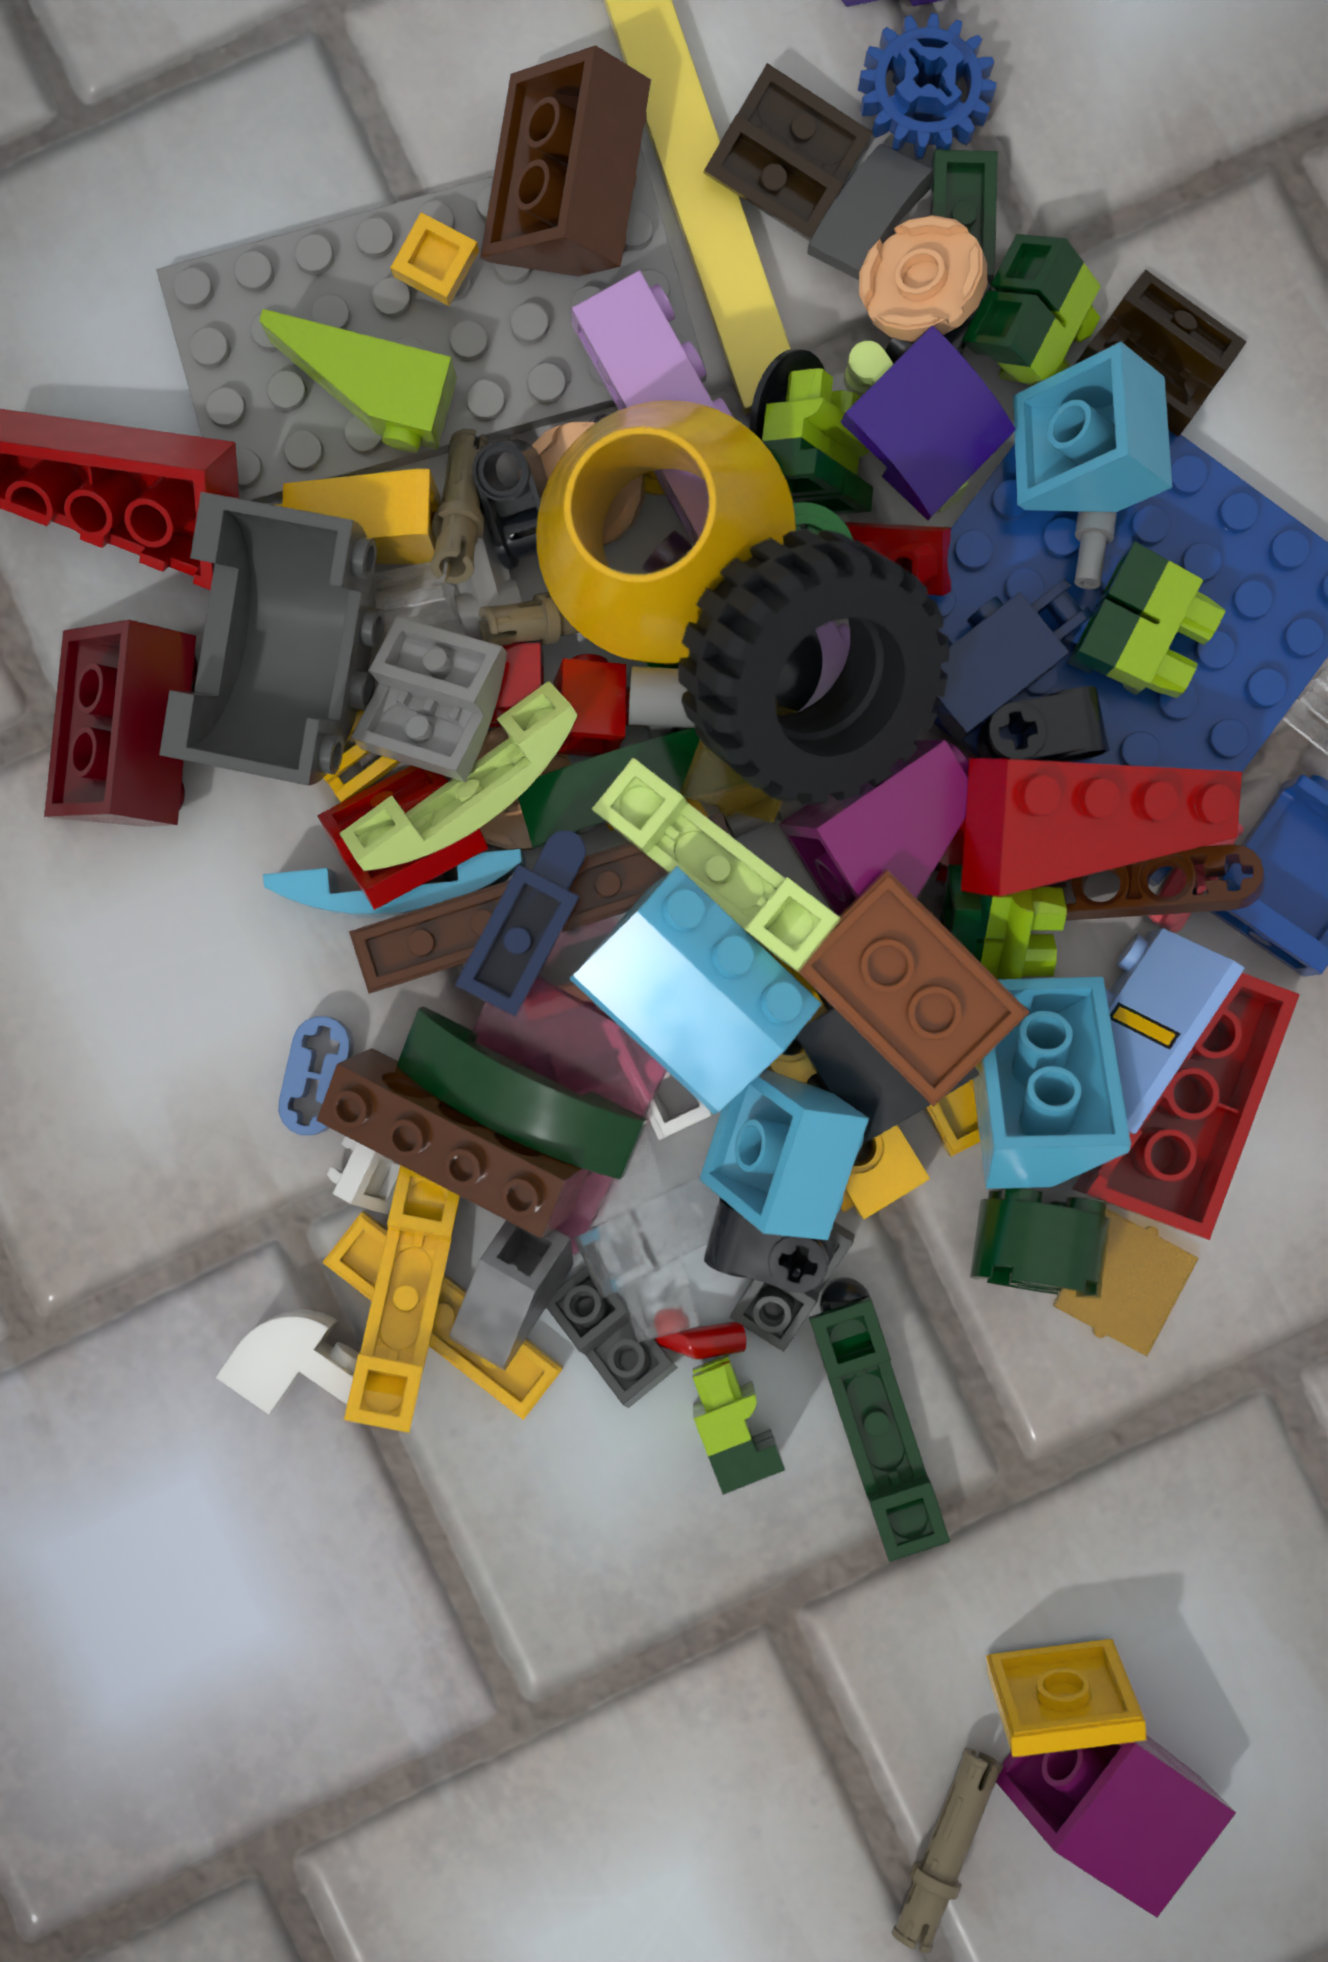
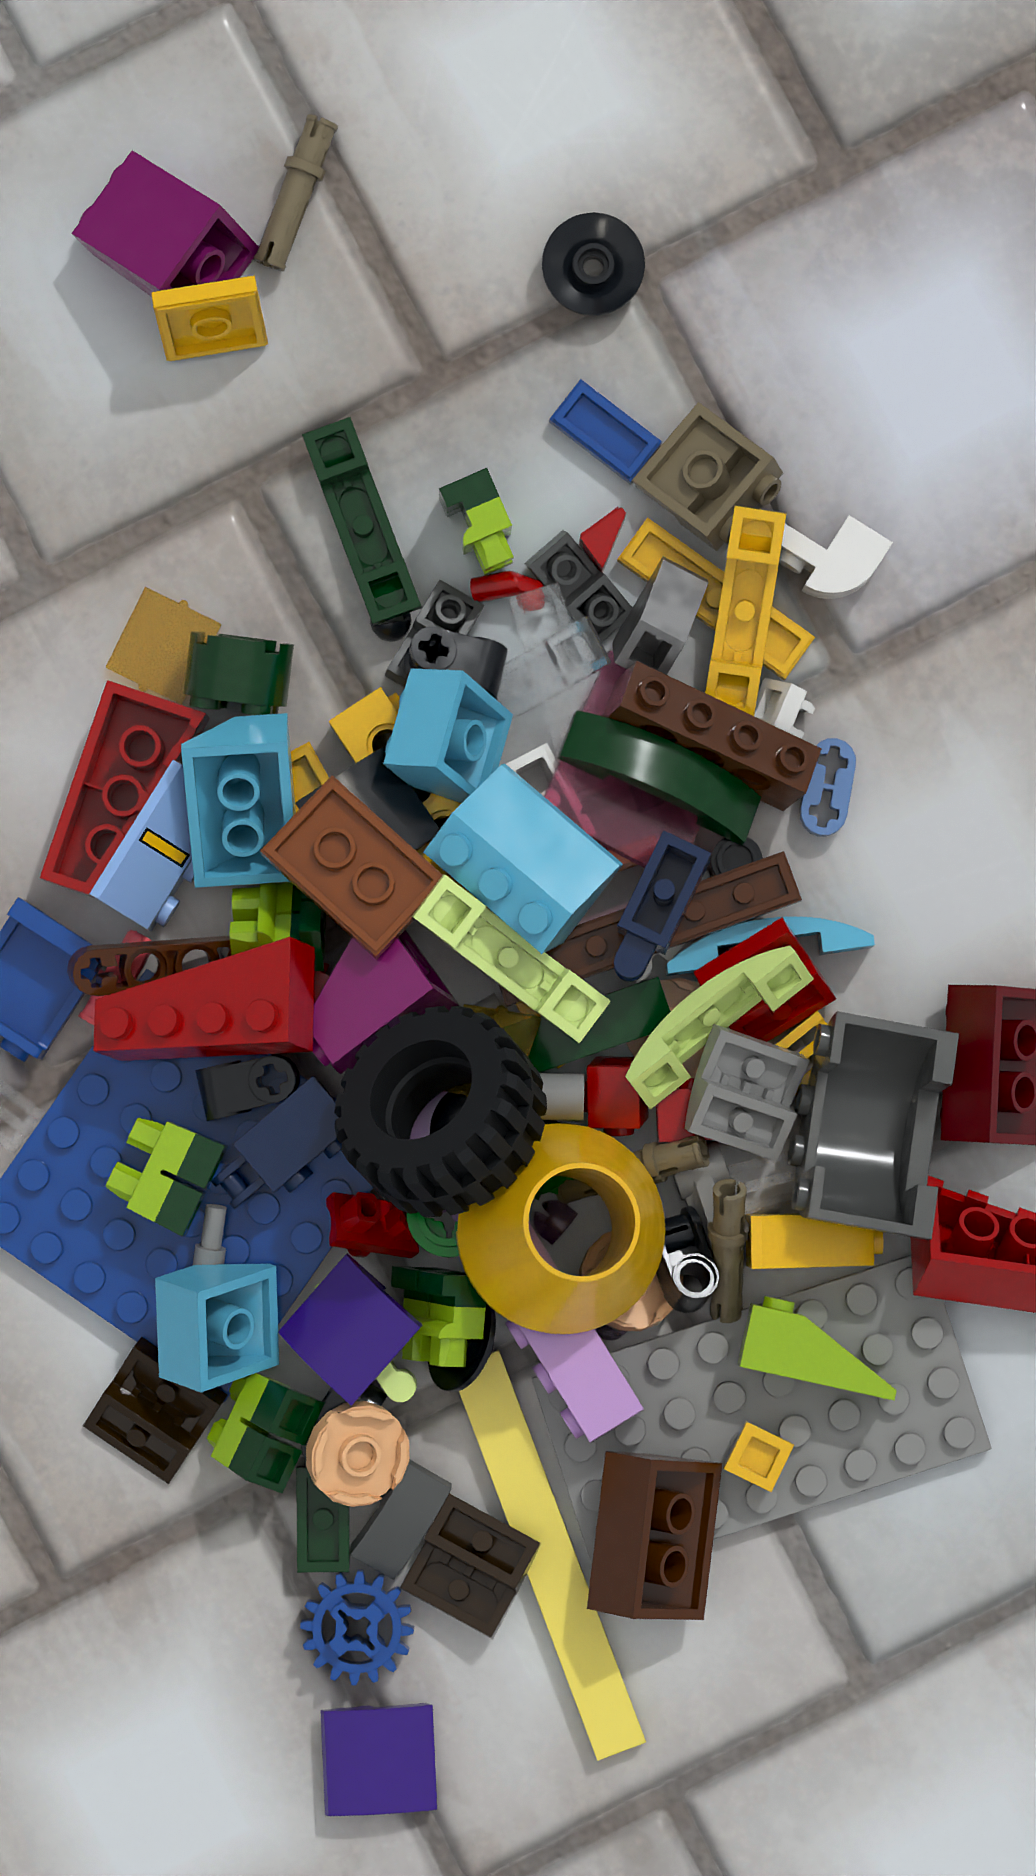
camera: 175 degrees right, 0 degrees up
(434, 992) = (730, 855): none -> black plate
(446, 1473) = (707, 472): none -> dark tan plate
(571, 1529) = (605, 431): none -> blue tile
(571, 1775) = (597, 238): none -> black dish
(582, 1396) = (601, 537): none -> red slope

